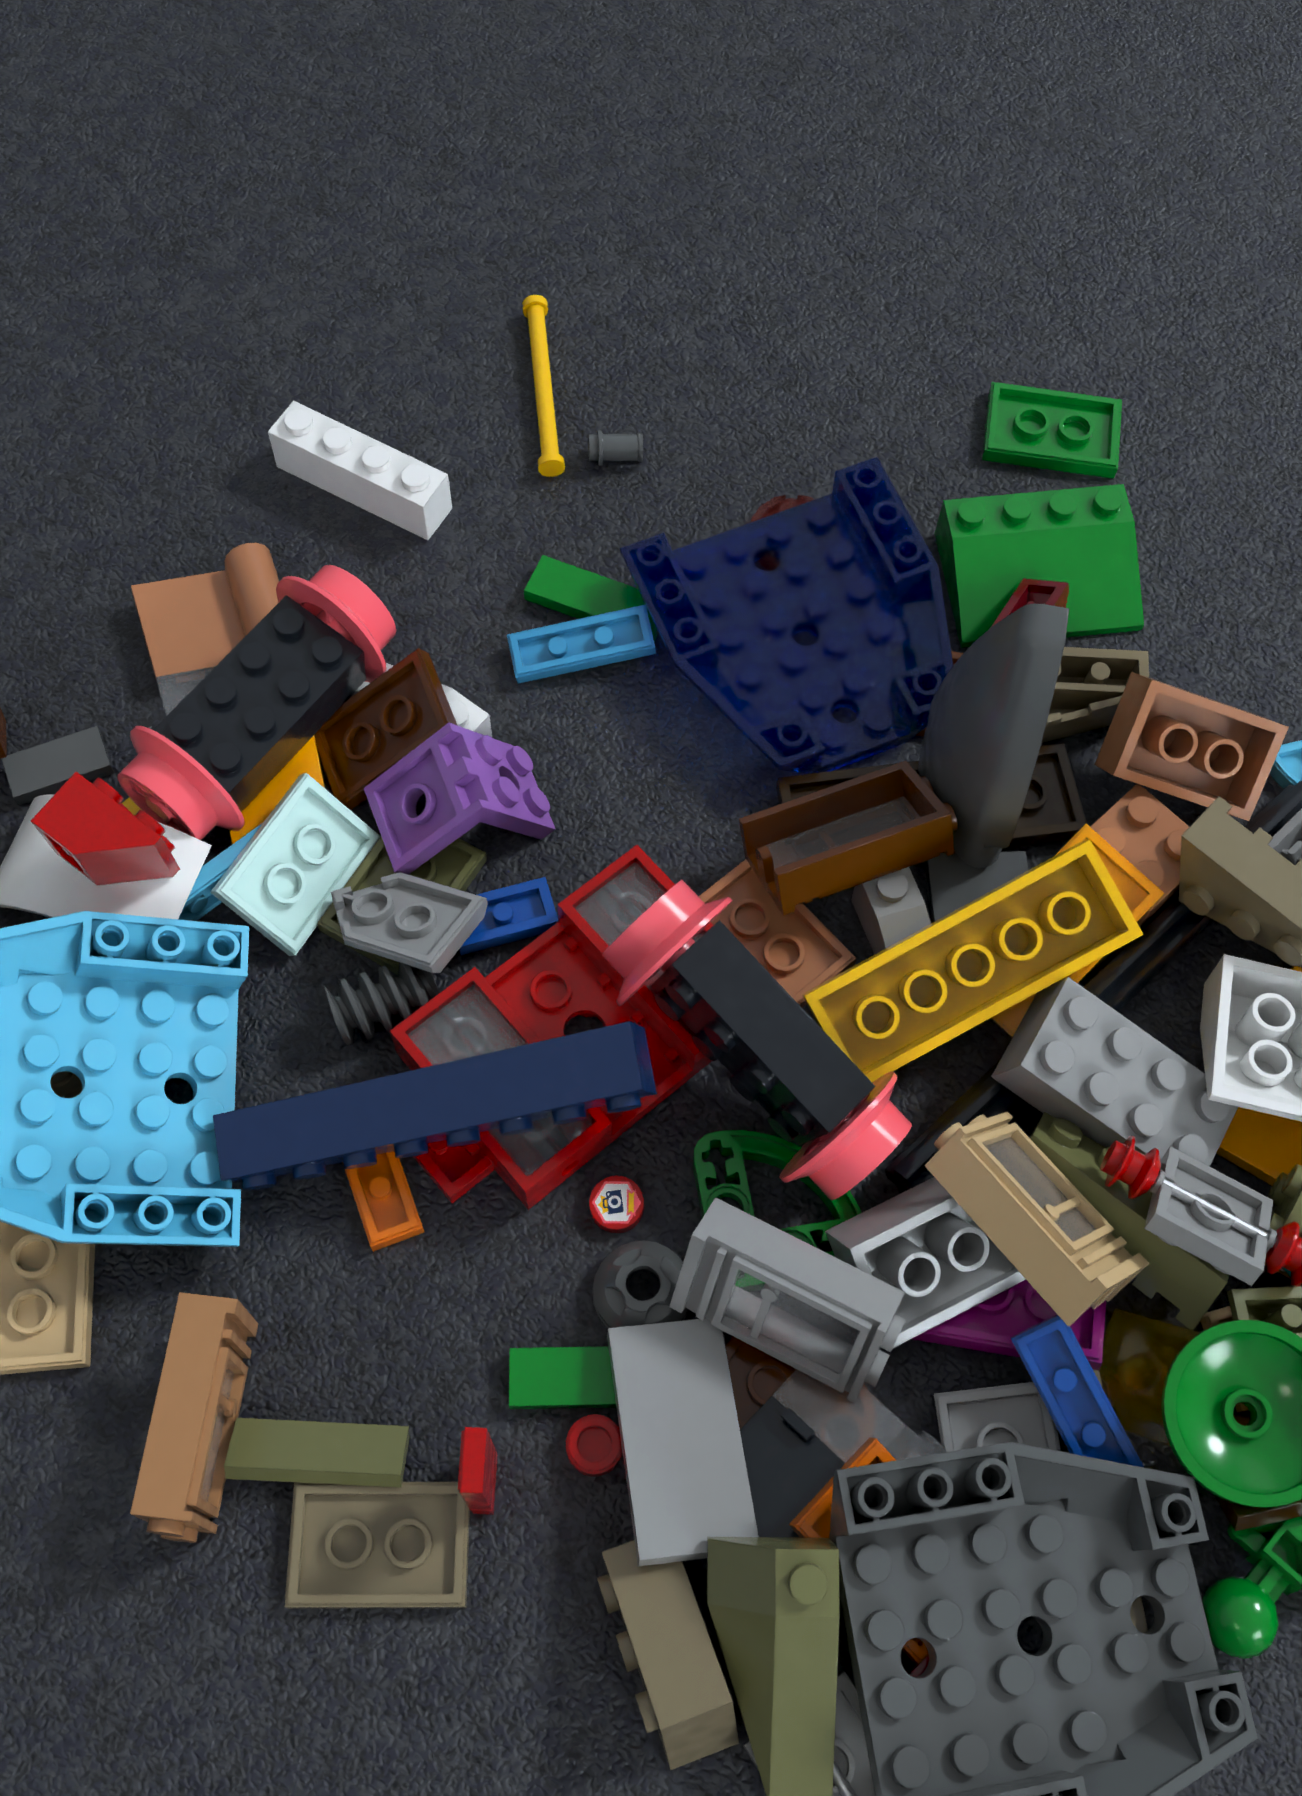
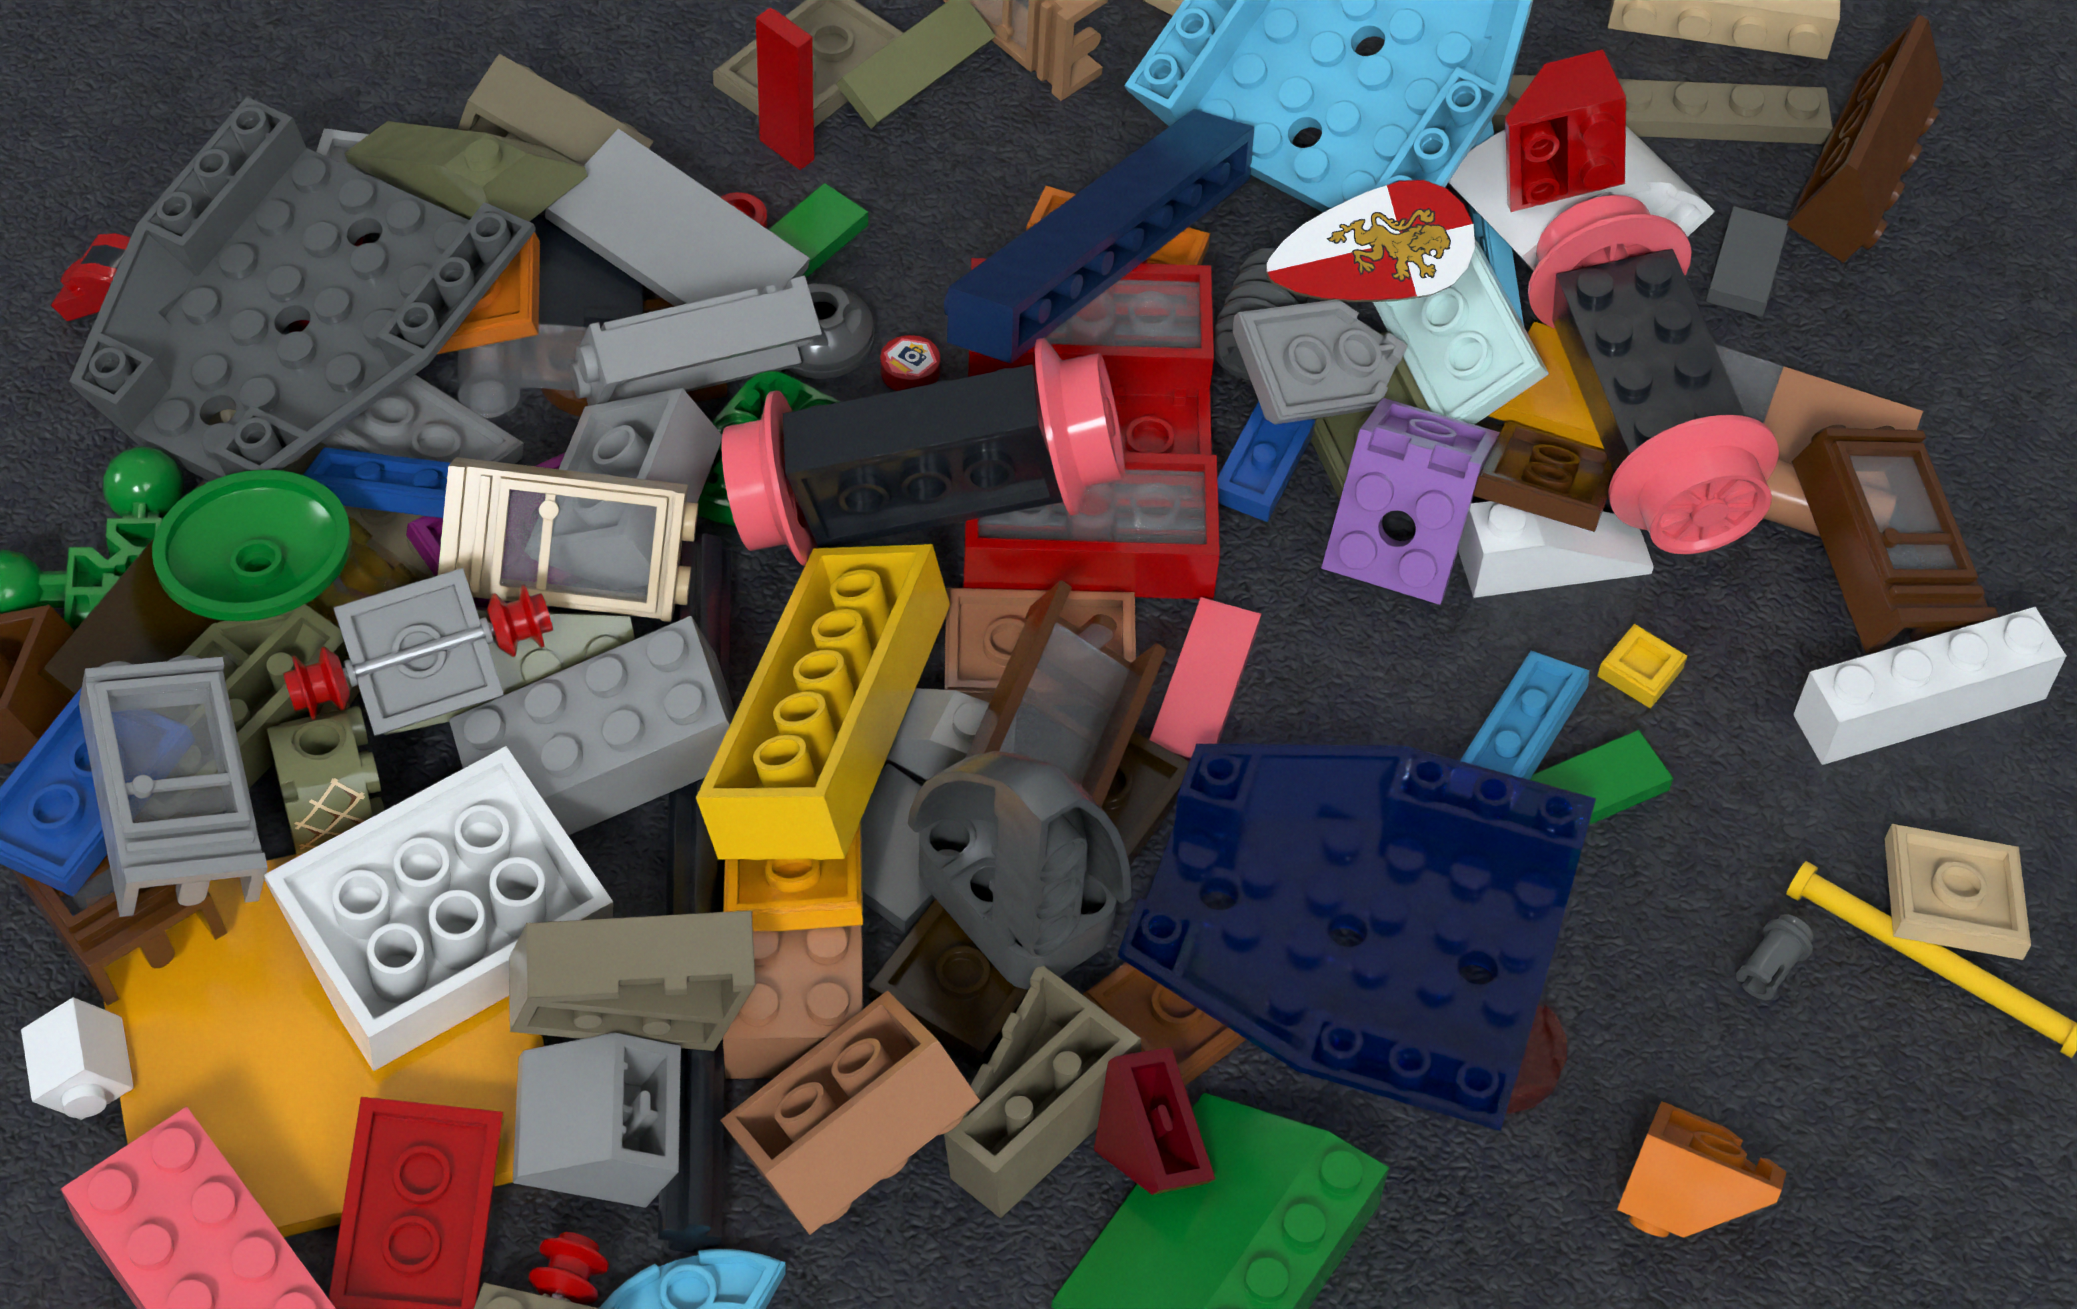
camera: 130 degrees right, 10 degrees down
(270, 529) = (1889, 534): none -> reddish brown door
(282, 933) = (1378, 247): none -> shield
(467, 623) = (1642, 666): none -> yellow tile
(494, 393) = (1957, 892): none -> tan tile
(700, 828) = (1205, 677): none -> coral tile
(790, 398) = (1695, 1177): none -> orange slope

